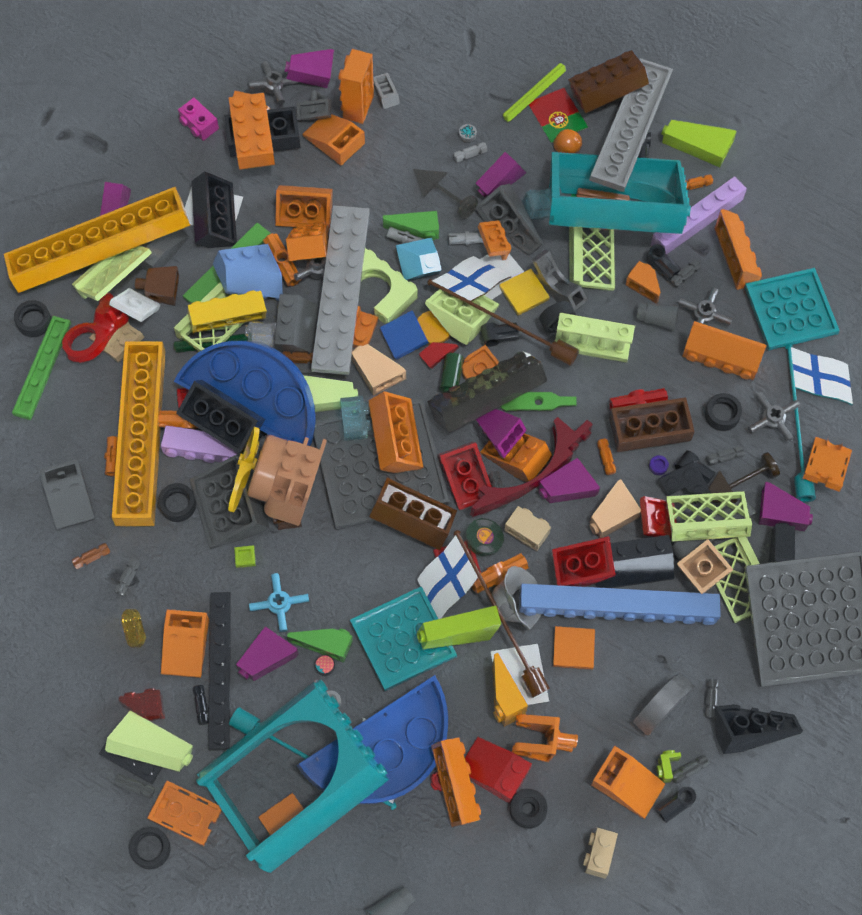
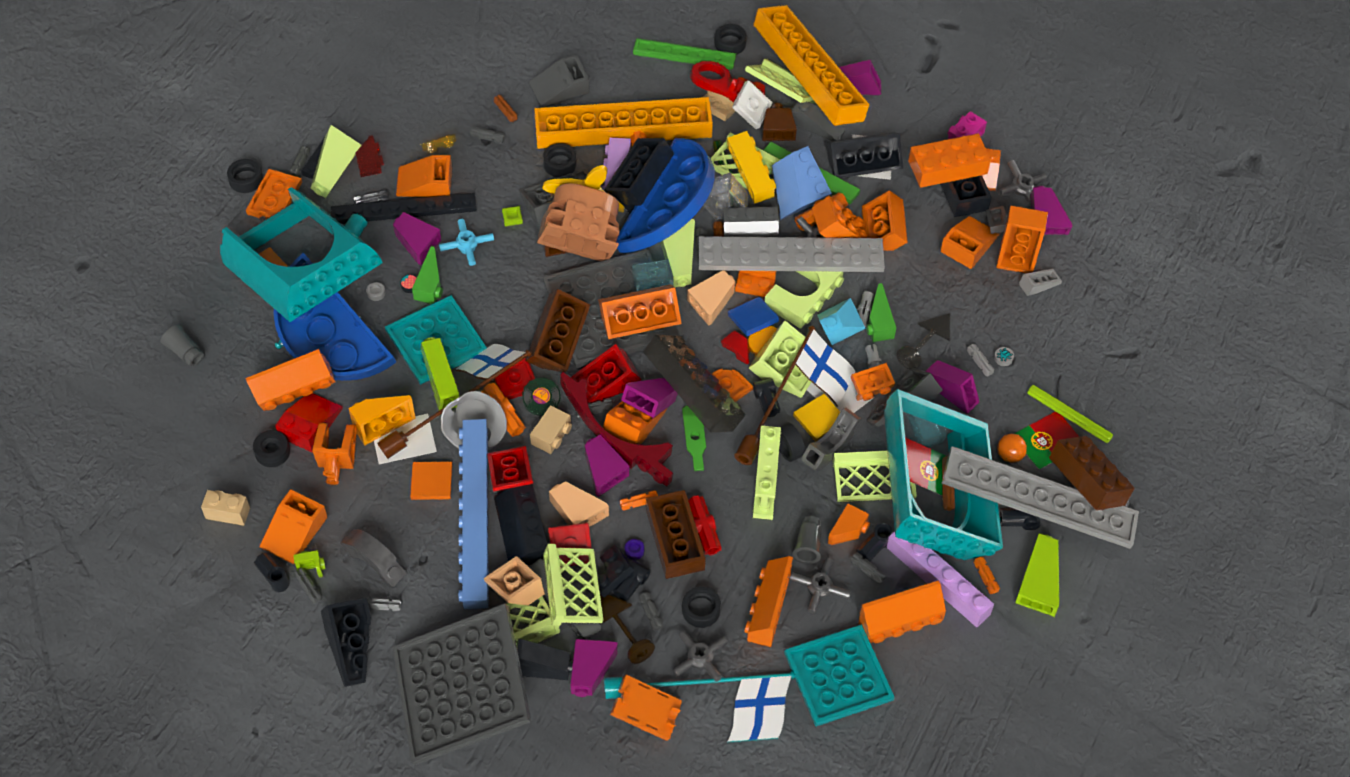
camera: 85 degrees right, 10 degrees down
(451, 371) = (716, 357): dark green brick -> none

